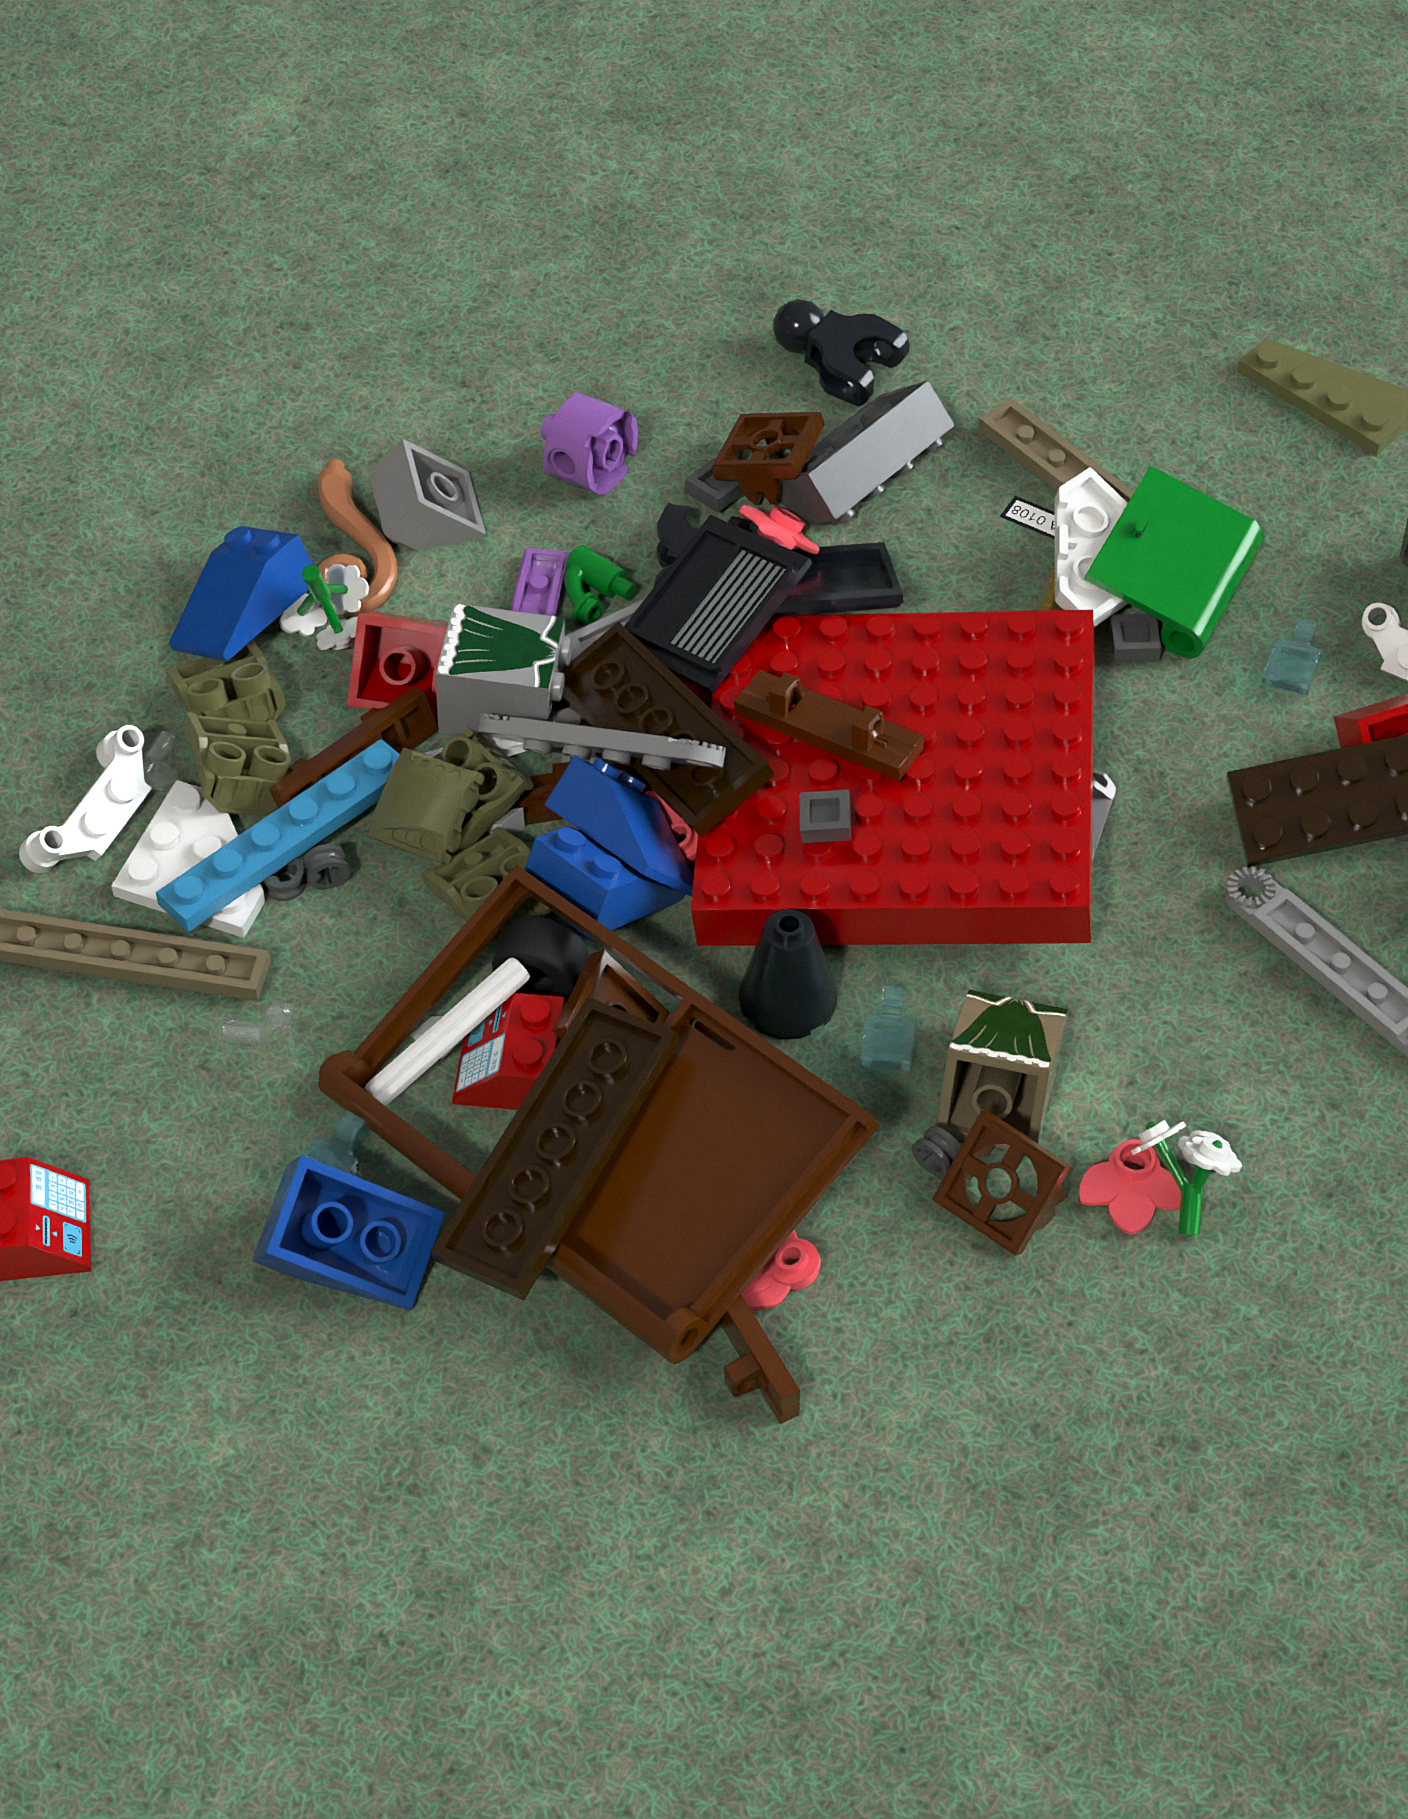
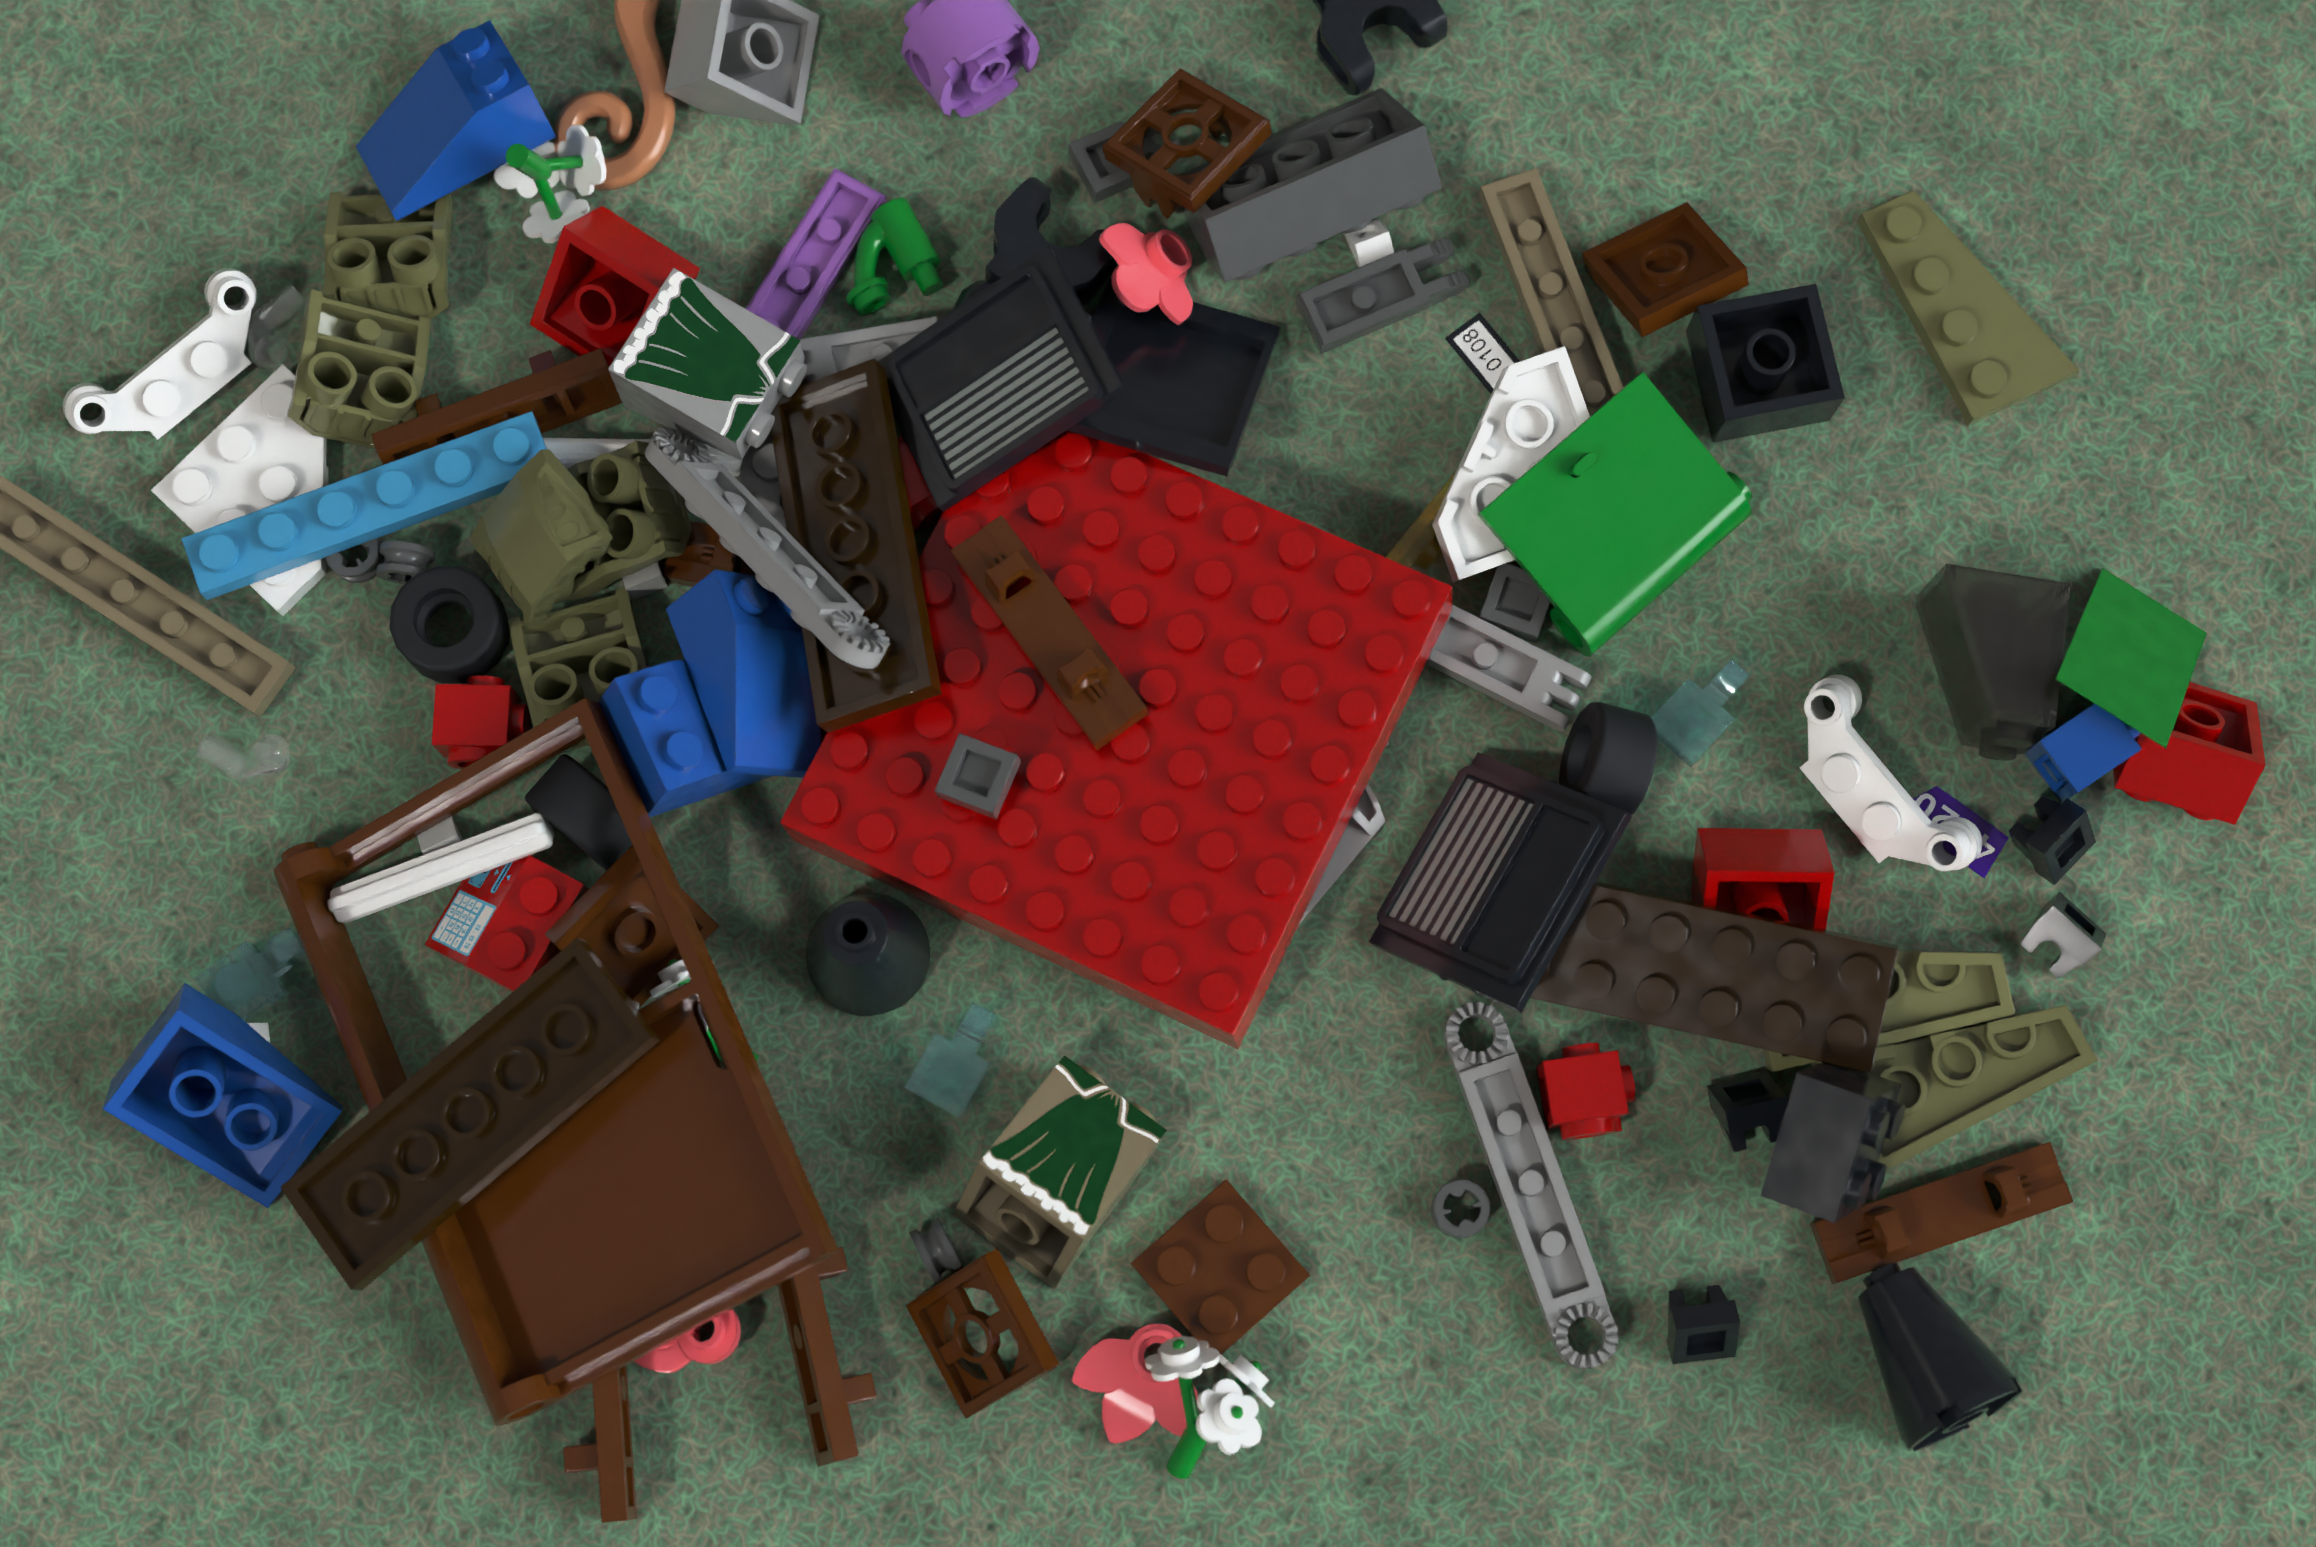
camera: 20 degrees right, 25 degrees up
(378, 915) = (427, 594): none -> black tyre
(422, 936) = (476, 719): none -> red brick
(884, 1247) = (816, 1363): none -> reddish brown hinge
(922, 481) = (1370, 243): none -> white piece
(942, 501) = (1377, 295): none -> dark grey hinge
(1129, 422) = (1665, 269): none -> reddish brown plate
(1146, 1088) = (1220, 1269): none -> reddish brown plate
(1151, 676) = (1506, 668): none -> light grey hinge
(1215, 786) = (1498, 879): none -> black piece
(1225, 448) = (1764, 363): none -> black brick
(1250, 699) = (1610, 755): none -> black tyre
(1302, 987) = (1465, 1227): none -> dark grey bush
(1346, 895) = (1585, 1091): none -> red brick

